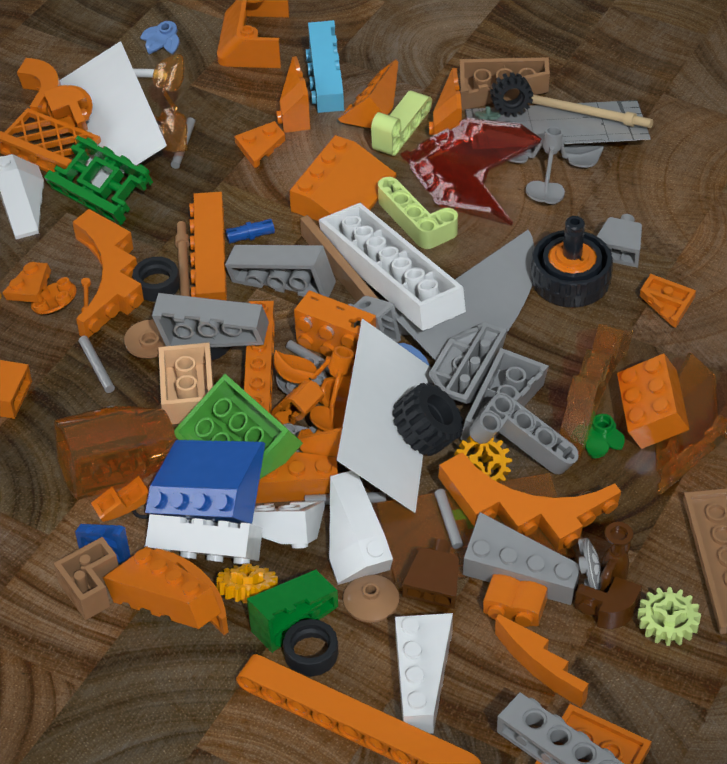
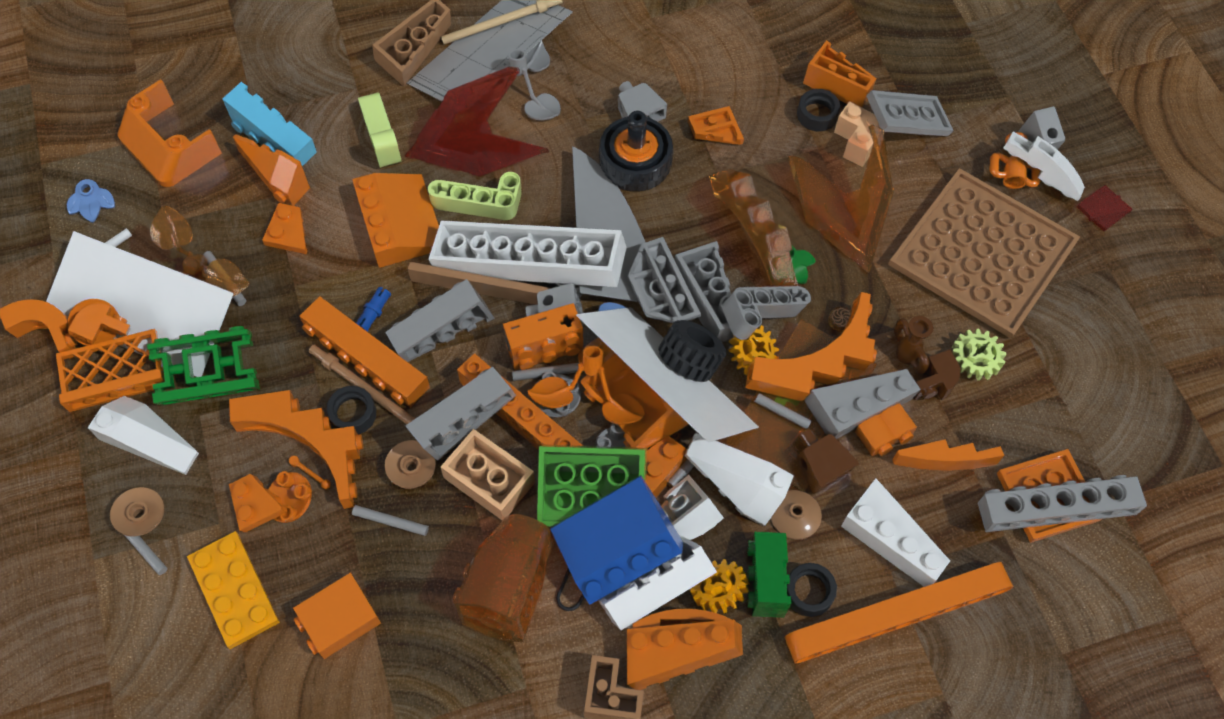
camera: 50 degrees left, 15 degrees up
(113, 534) = (581, 657): blue wing -> none
(116, 504) = (550, 609): orange slope -> none
(298, 402) = (590, 418): orange brick -> none
(373, 99) = (336, 127): orange wedge -> none
(448, 108) = (407, 91): orange wedge -> none
(487, 114) = (434, 75): sand green plant -> none
(516, 105) = (440, 46): black tyre -> none
(589, 563) = (903, 360): light grey dish -> none
(652, 401) = (805, 210): orange brick -> none

